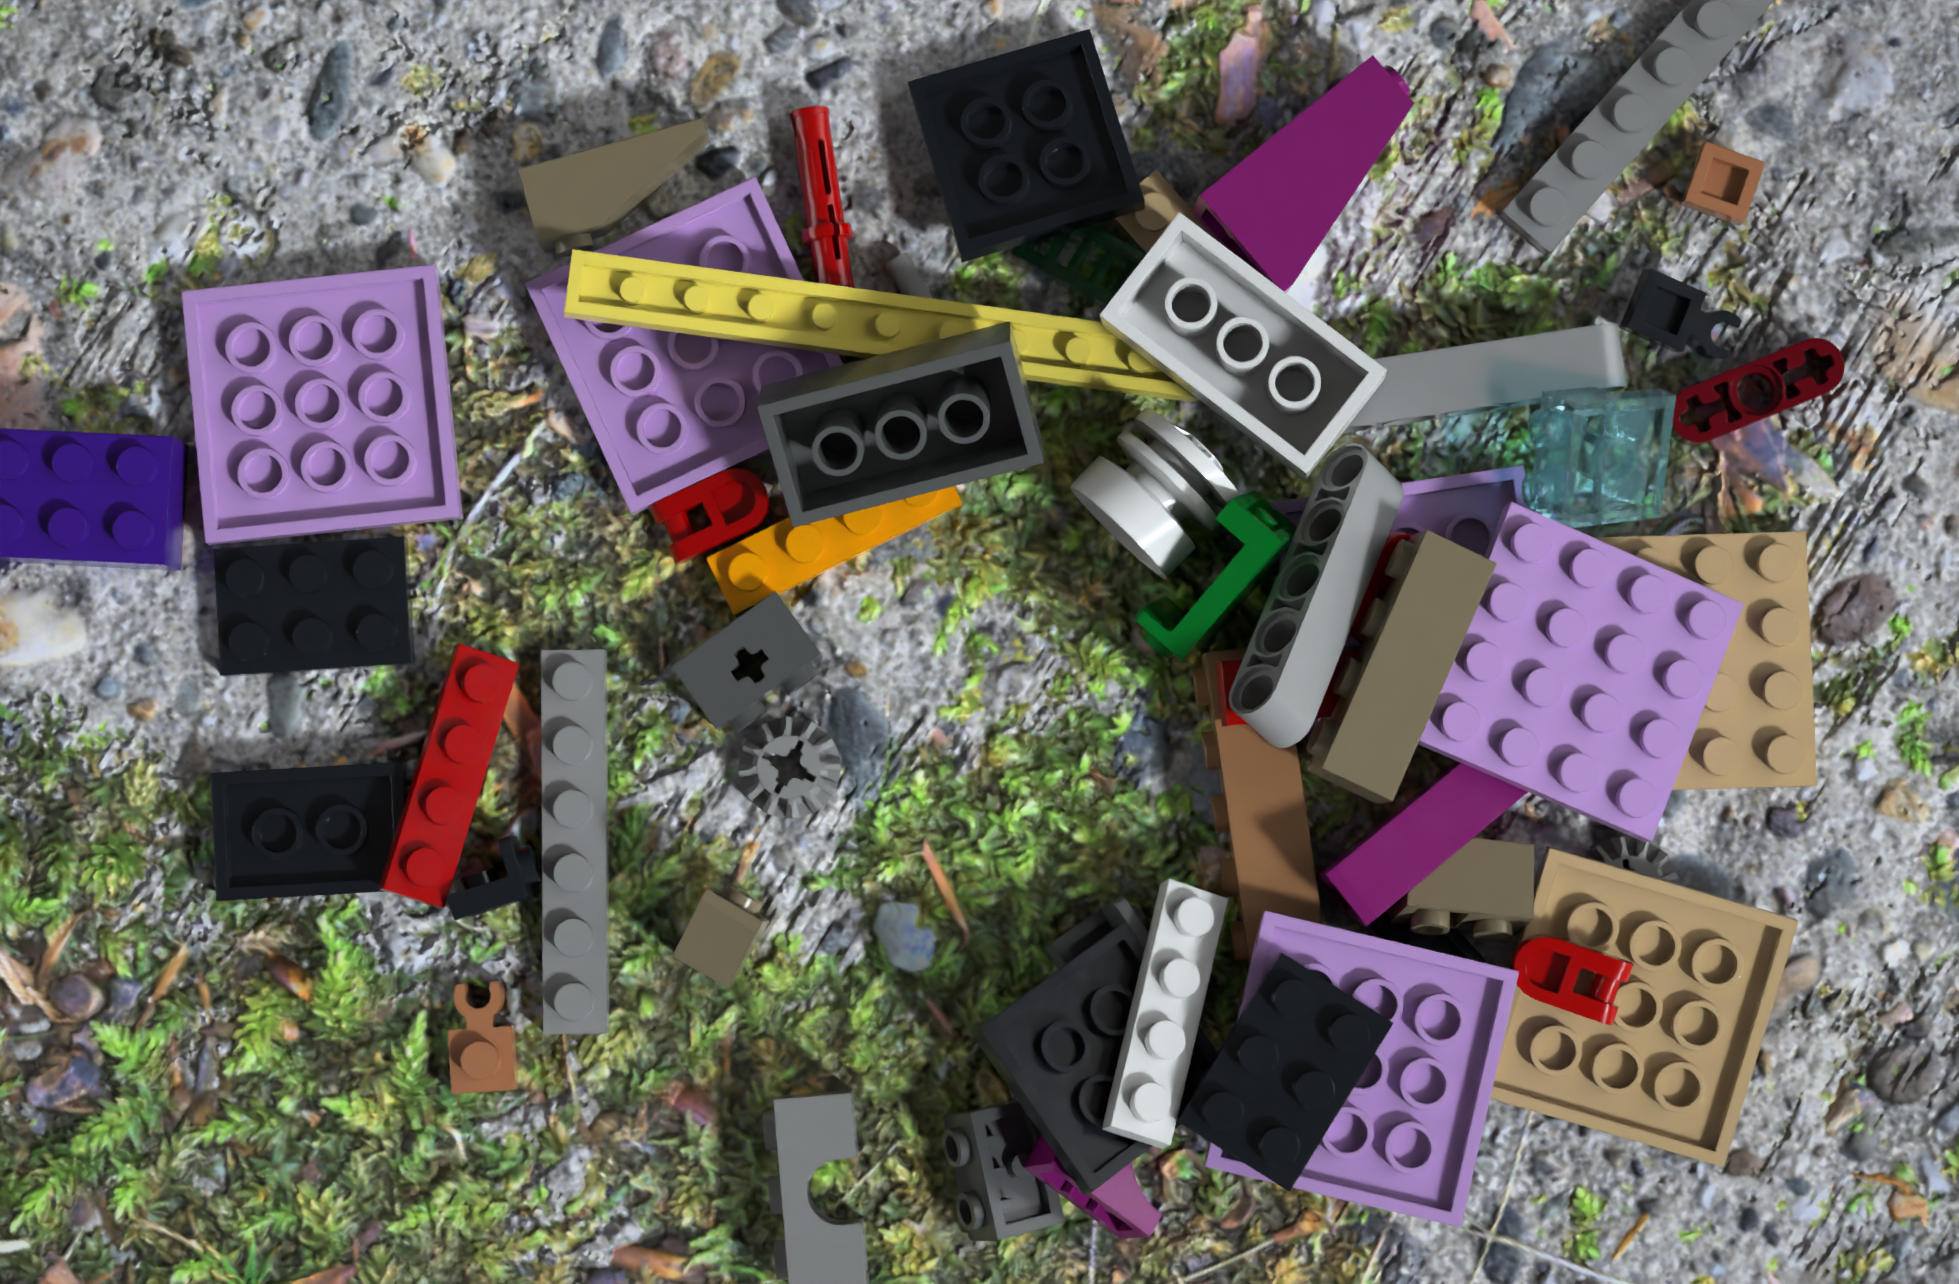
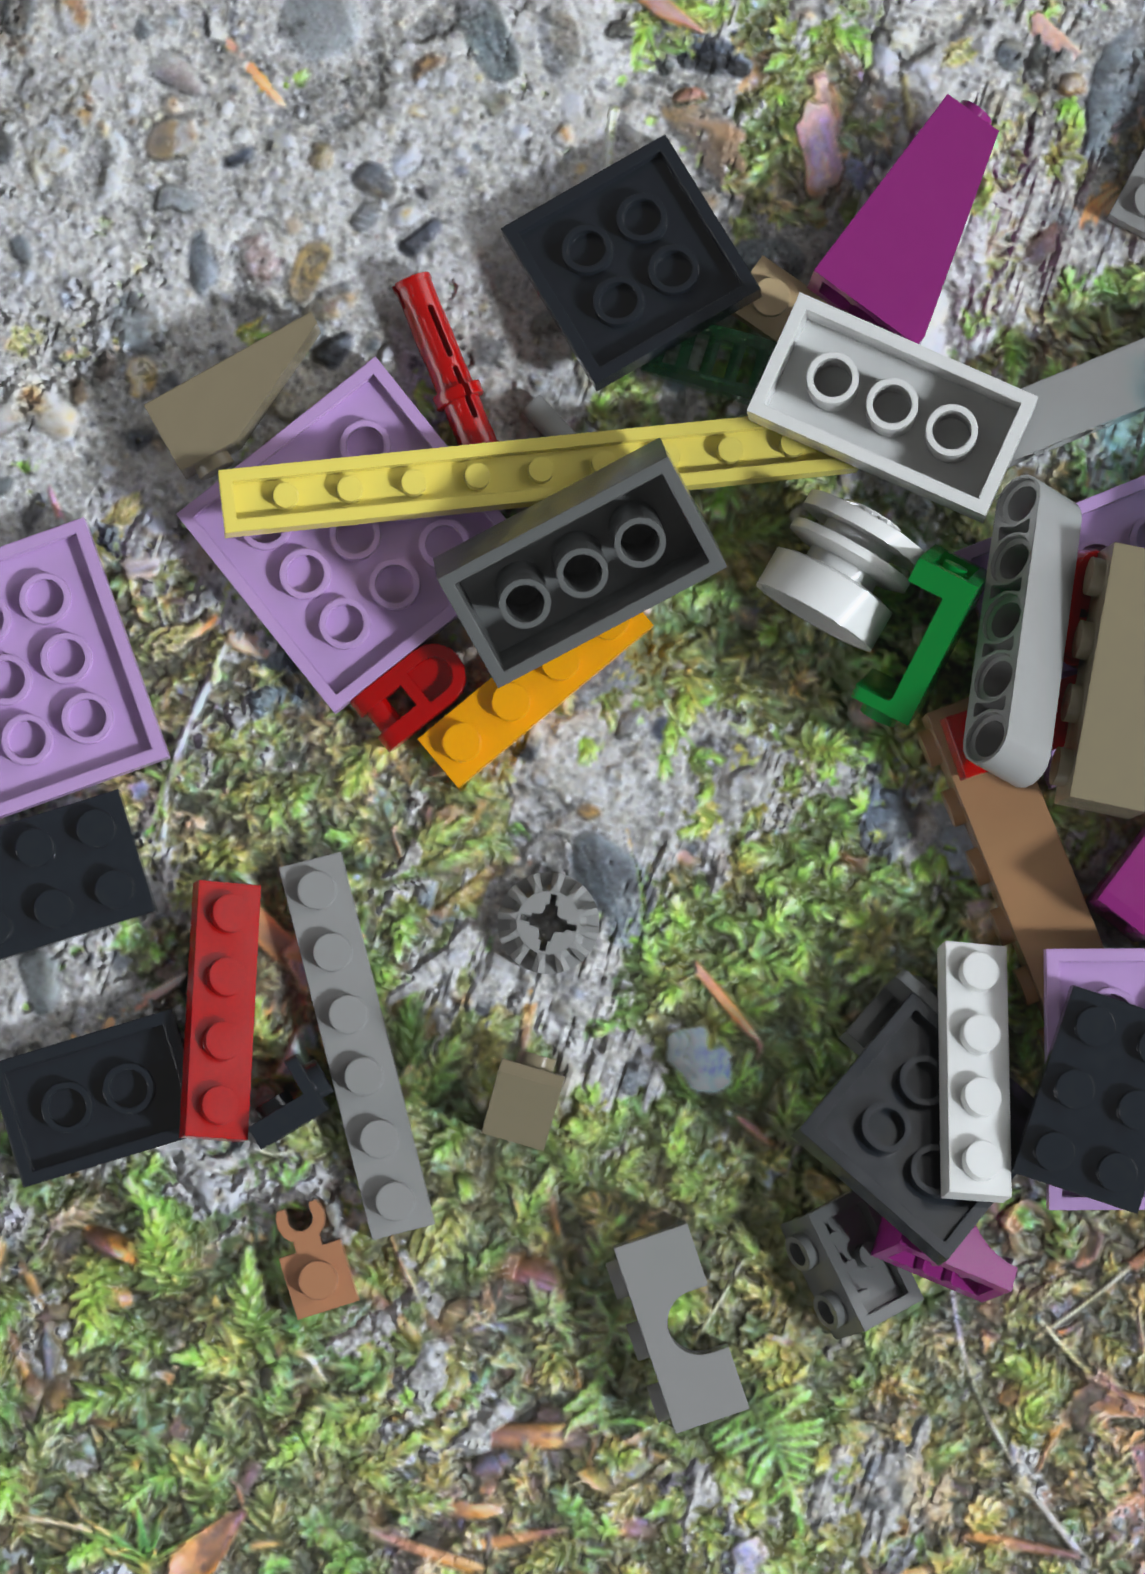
camera: 10 degrees left, 0 degrees up
(711, 666) = (491, 794): dark grey brick -> none

